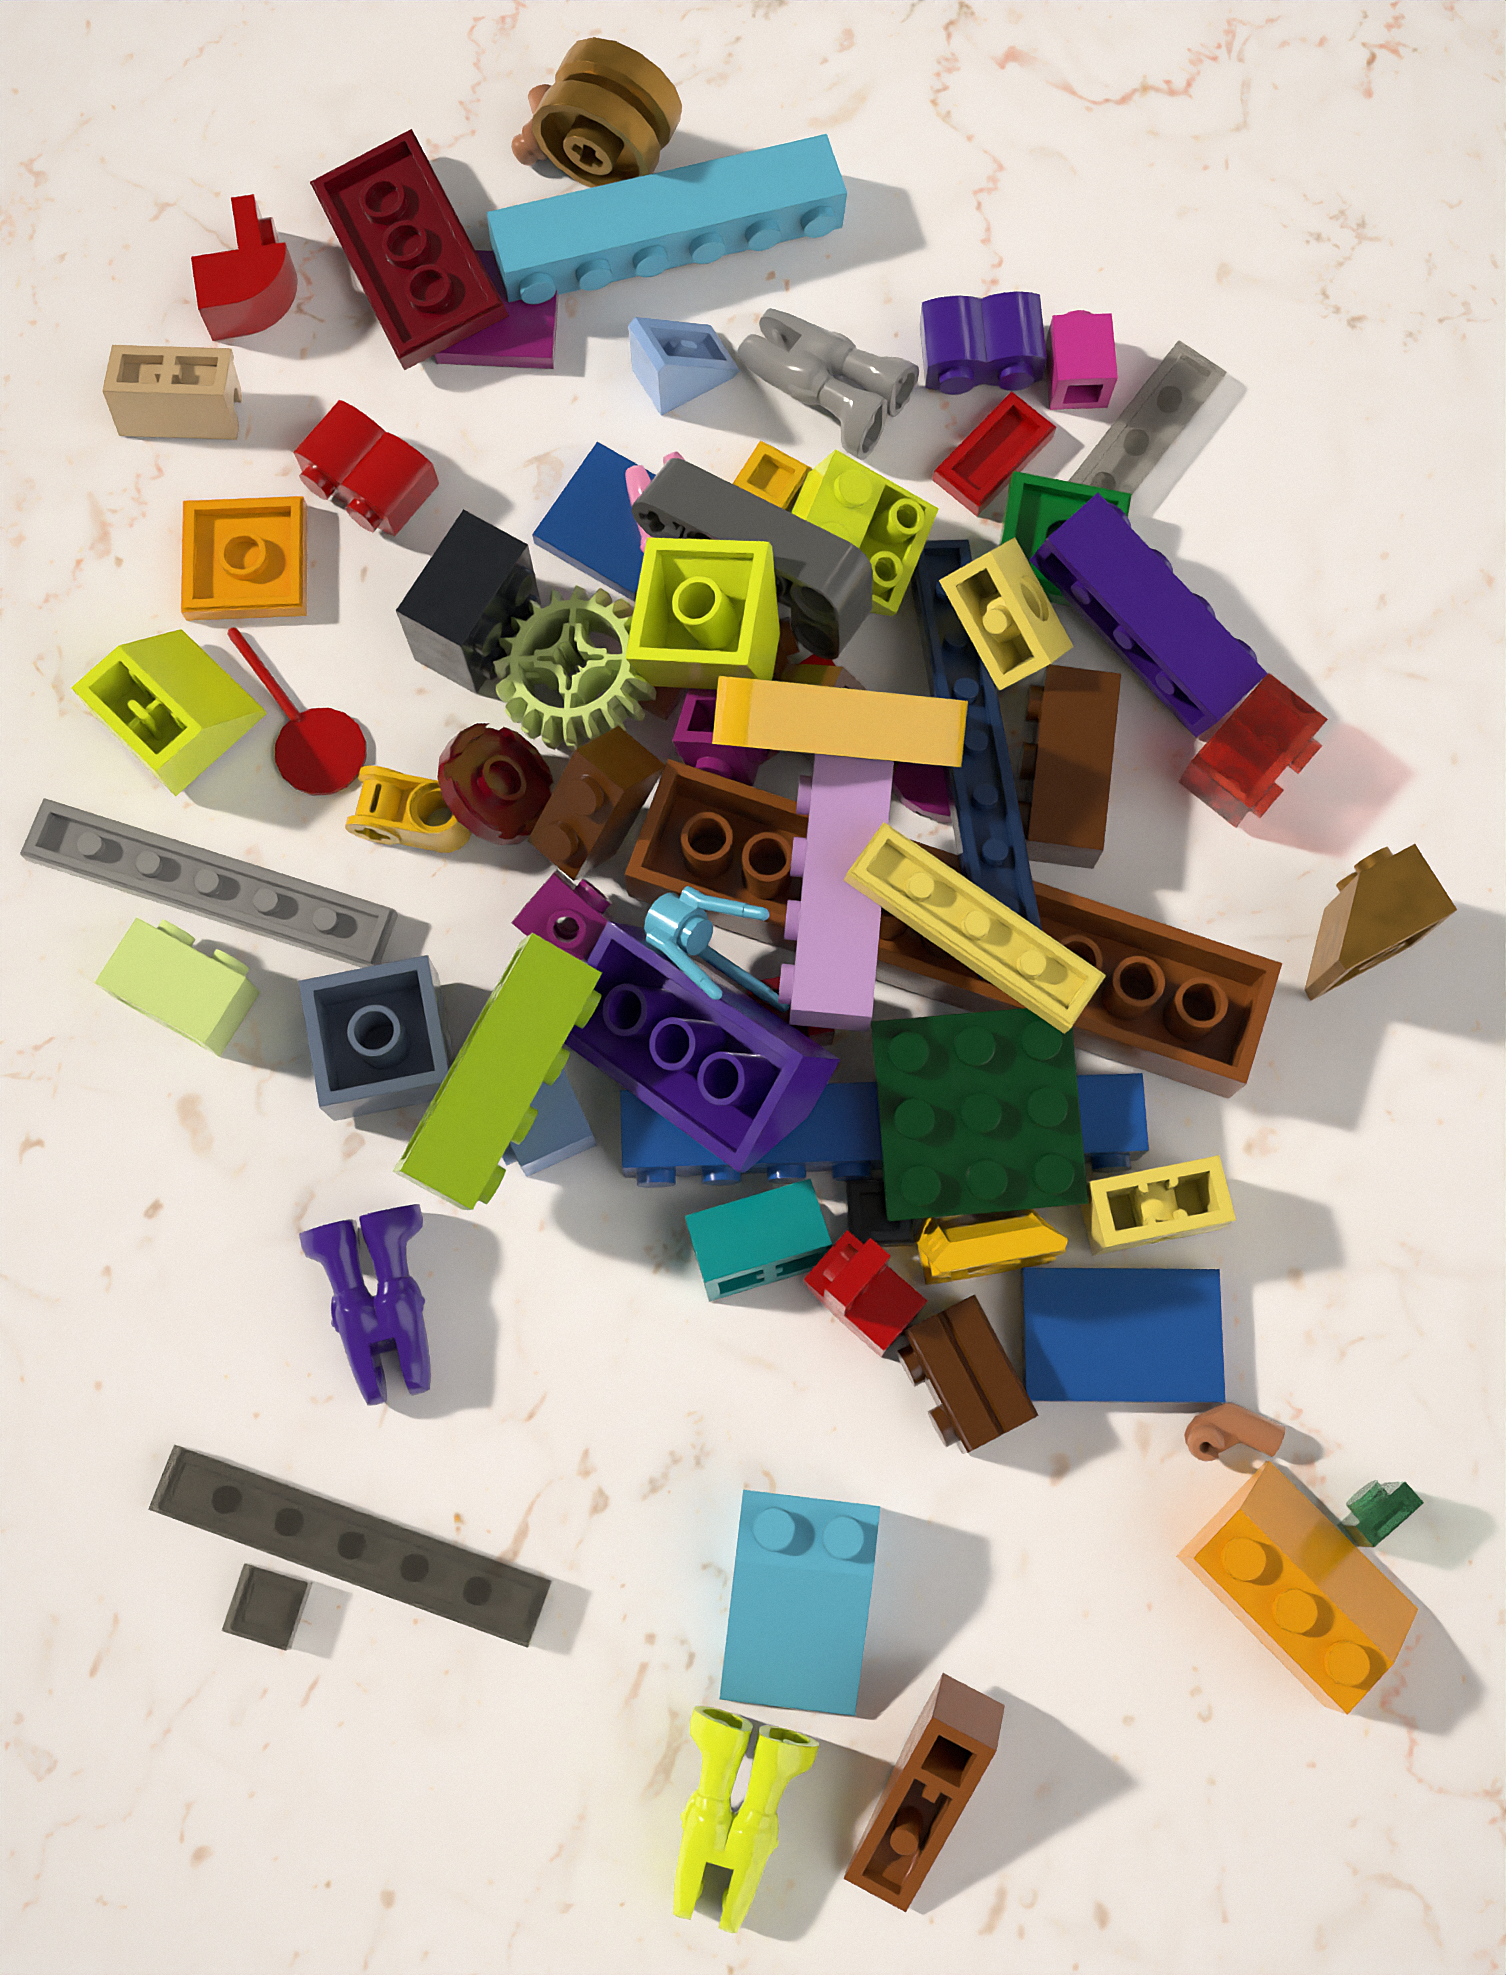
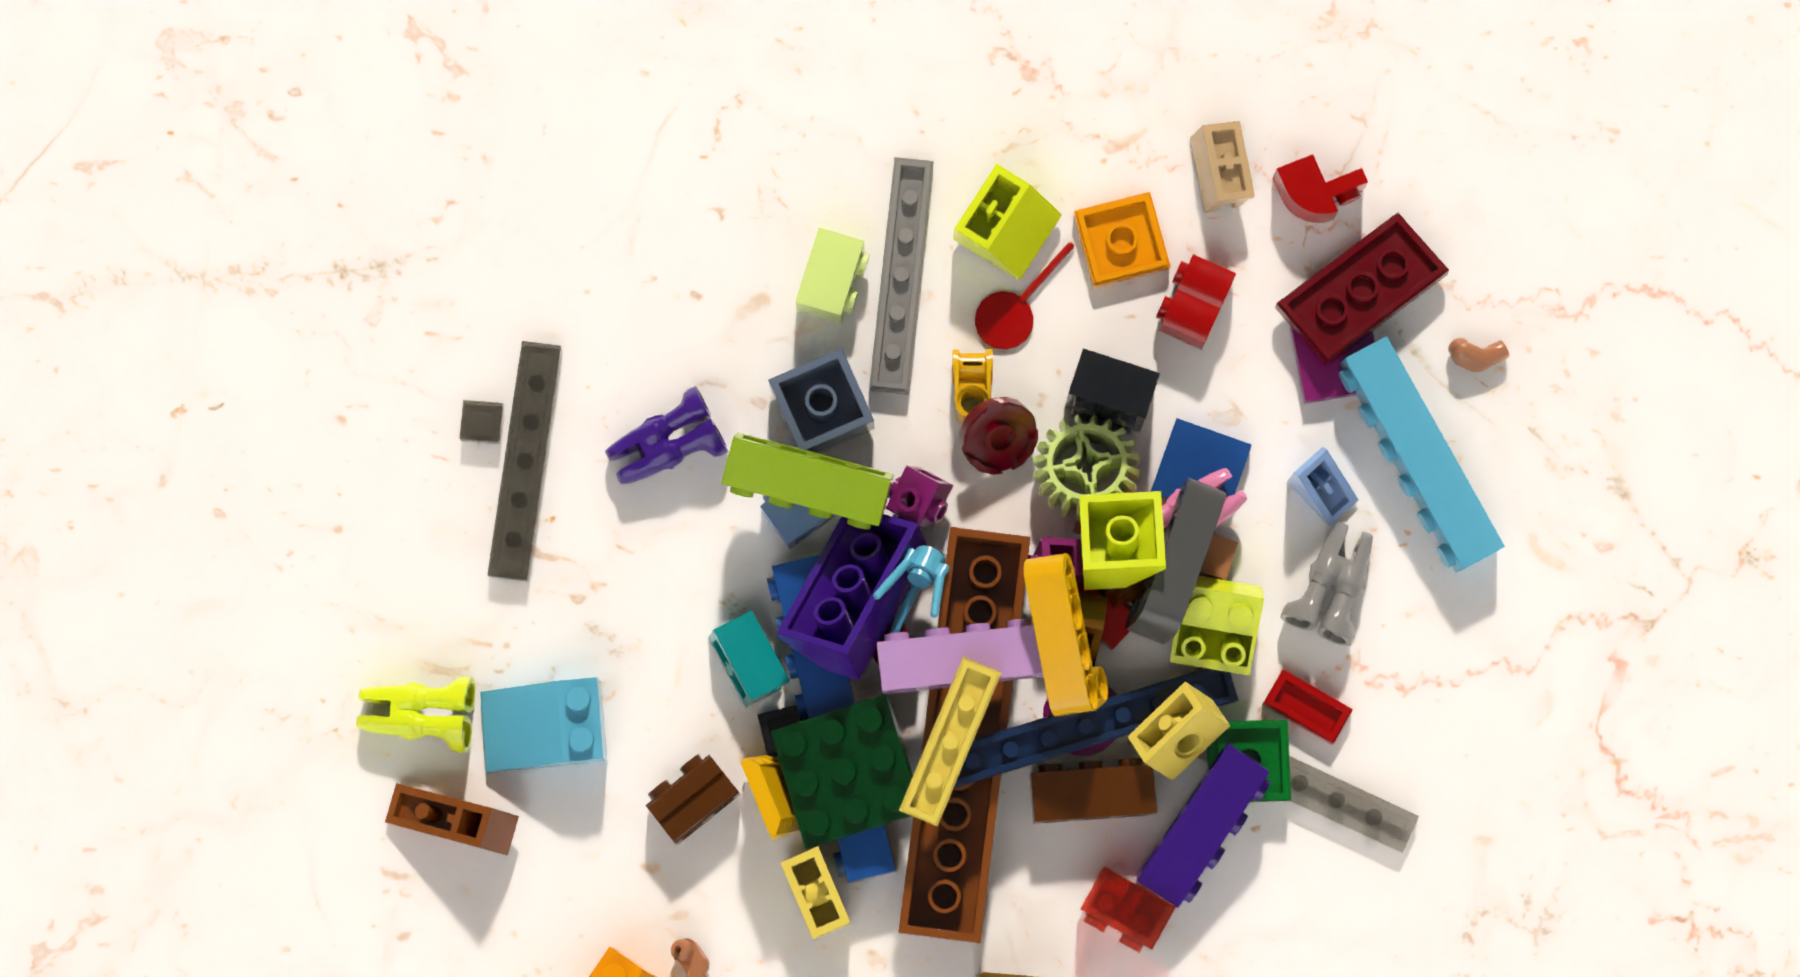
camera: 80 degrees right, 5 degrees up
(596, 802) = (994, 499): reddish brown brick -> none
(606, 113) = (1479, 398): pearl gold wheel -> none
(773, 476) = (1252, 563): yellow tile -> none
(865, 1292) = (728, 727): red brick -> none
(982, 341) = (1381, 682): dark purple brick -> none
(1080, 360) = (1384, 750): dark pink brick -> none
(1122, 1335) = (737, 890): blue tile -> none

